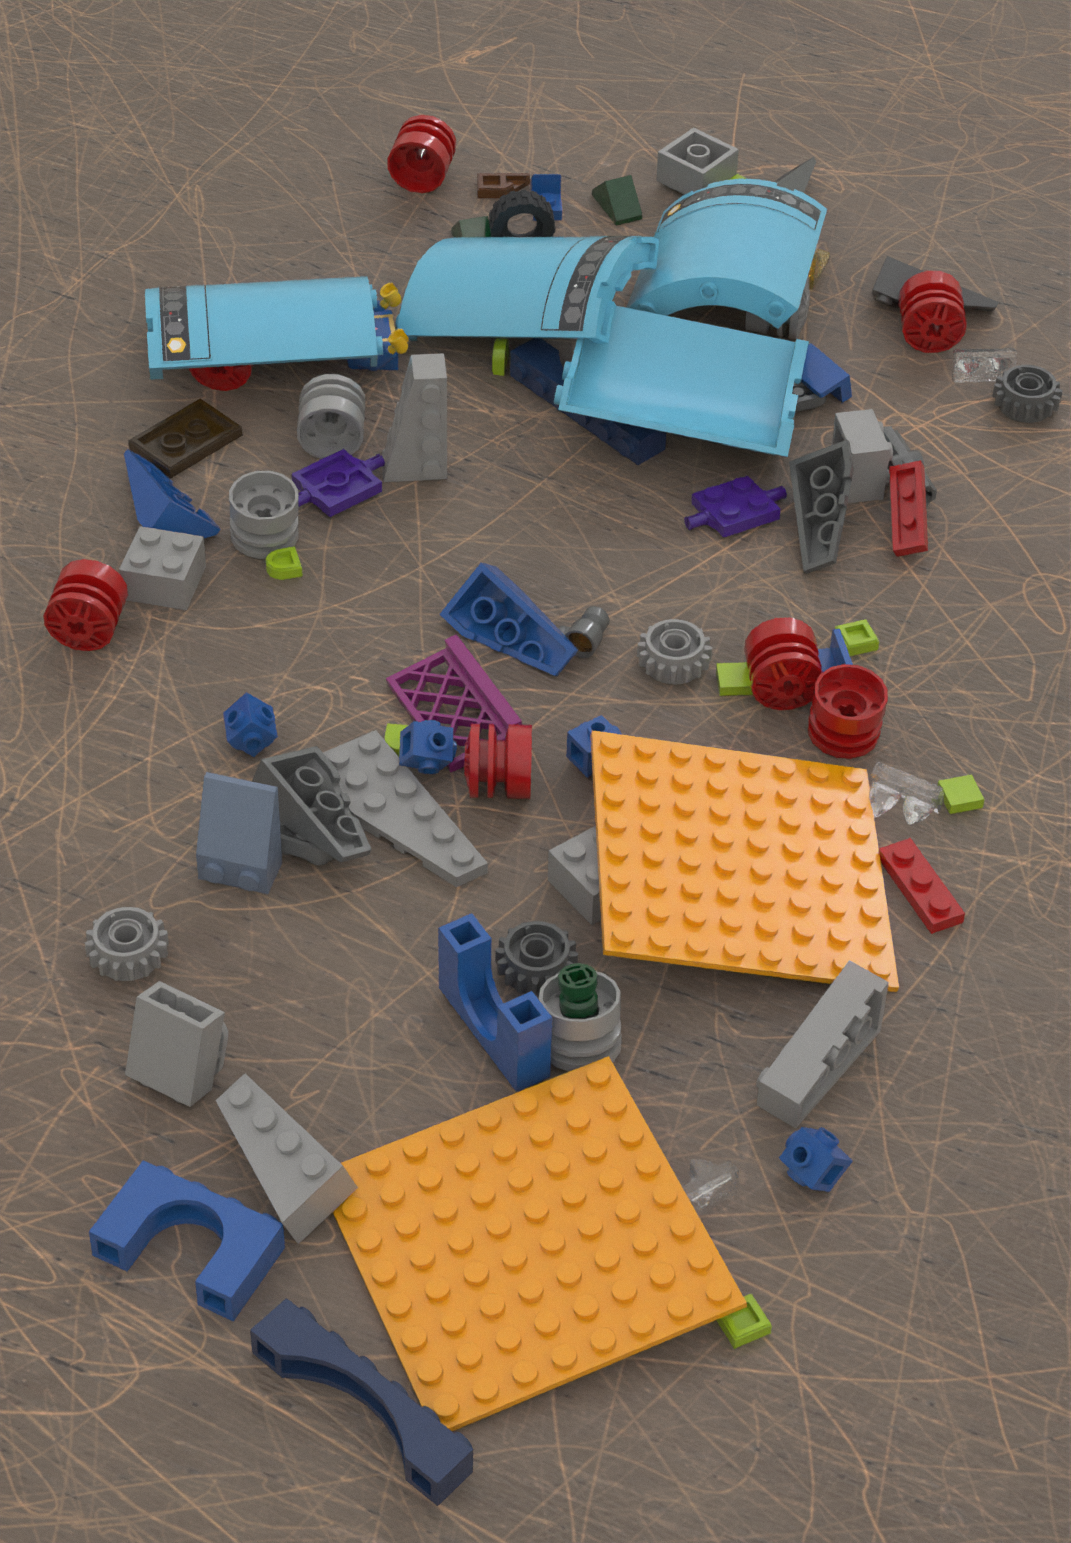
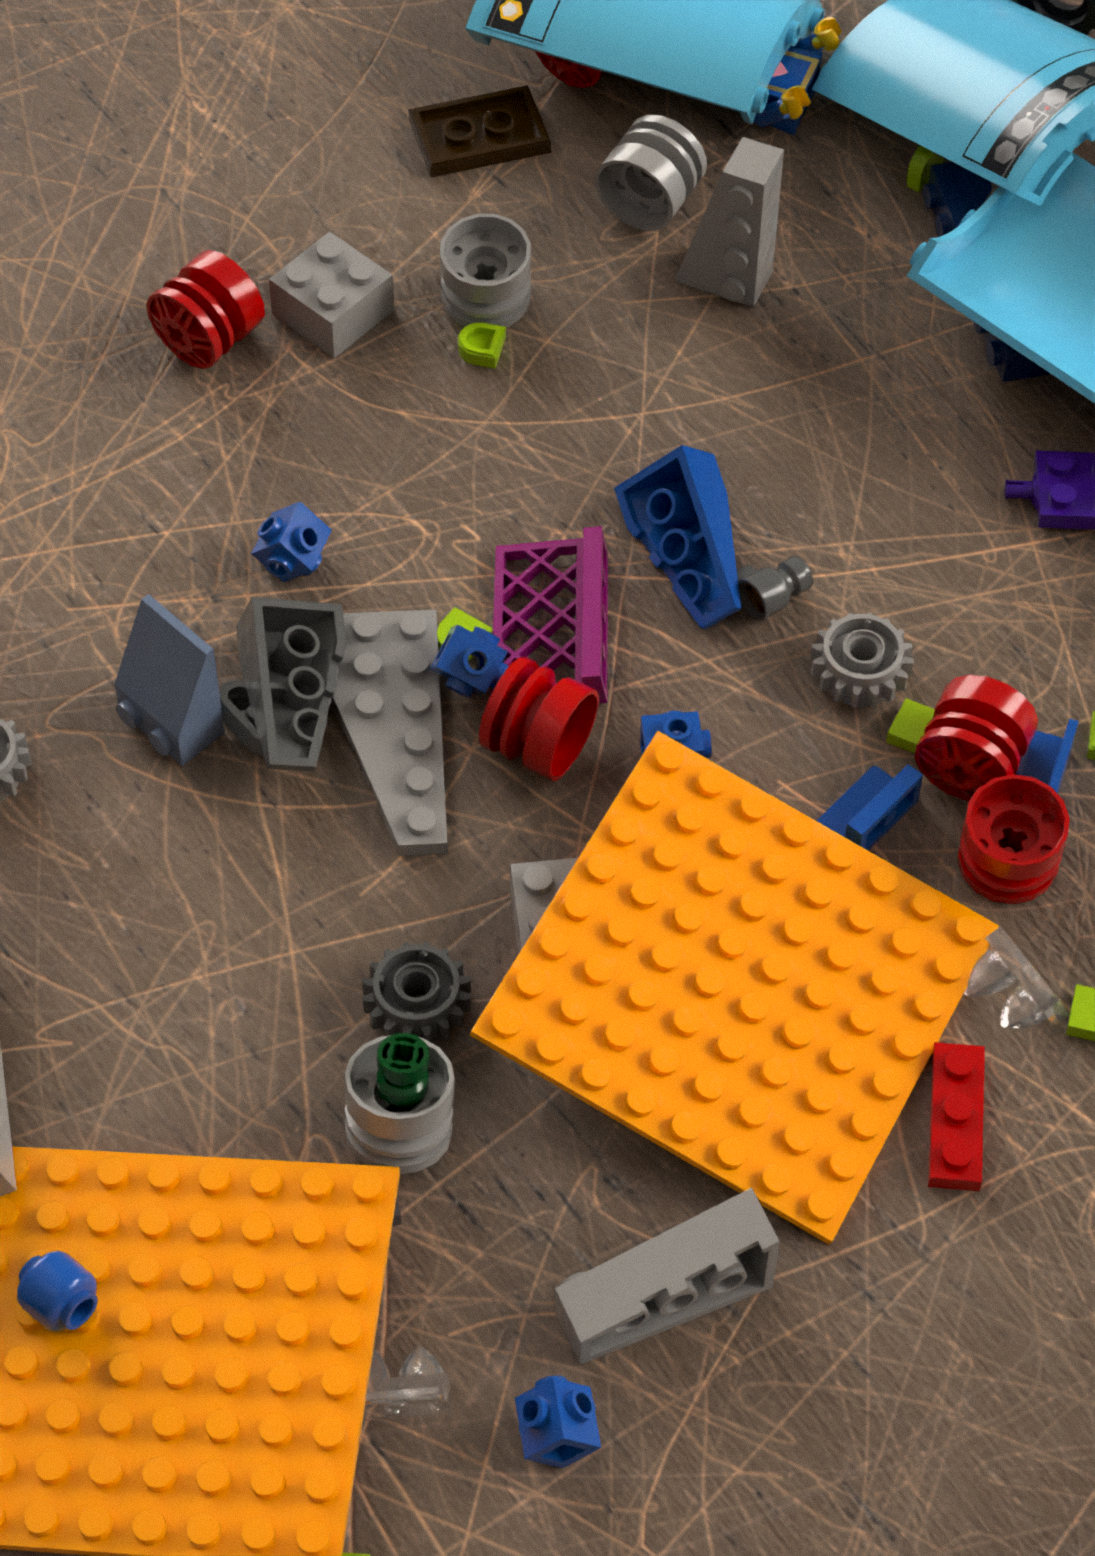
camera: 30 degrees right, 10 degrees up
(161, 504) = (389, 209): blue wedge -> none
(338, 482) = (611, 261): dark purple plate -> none
(440, 1227) = (57, 1291): none -> blue head
(512, 1032) = (309, 1055): blue arch -> none
(742, 730) = (873, 805): none -> blue panel

